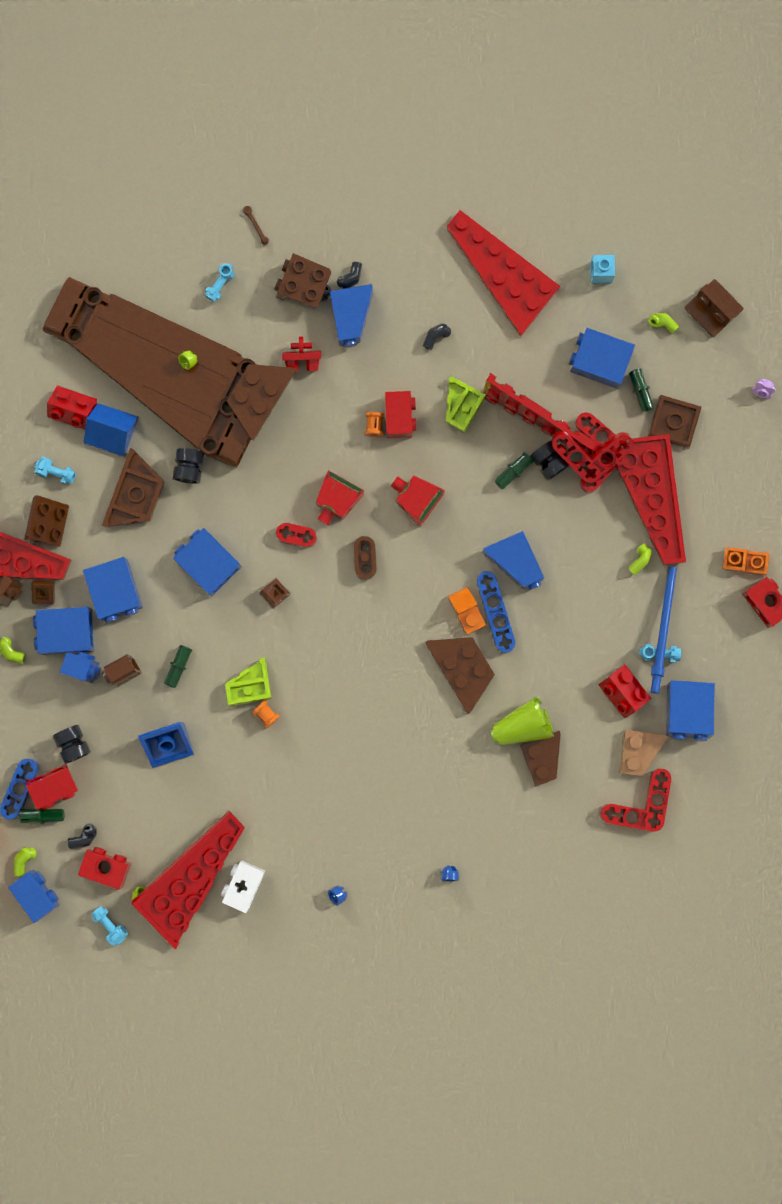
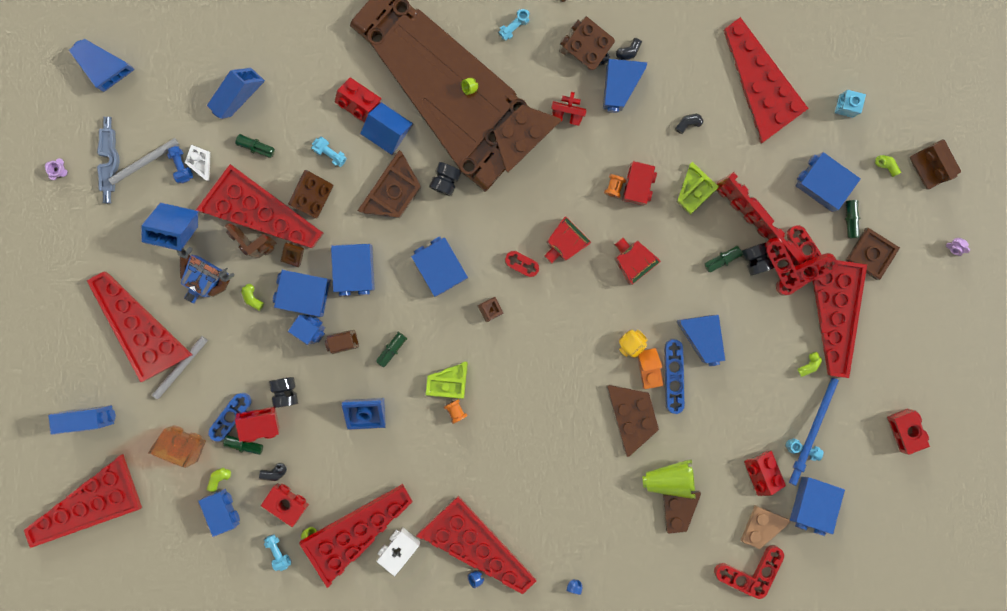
camera: 10 degrees right, 5 degrees up
(319, 853) = (472, 542): none -> red wing
(365, 558) = (576, 299): reddish brown plate -> none
(440, 588) = (633, 343): none -> yellow head
(746, 561) = (899, 391): orange slope -> none

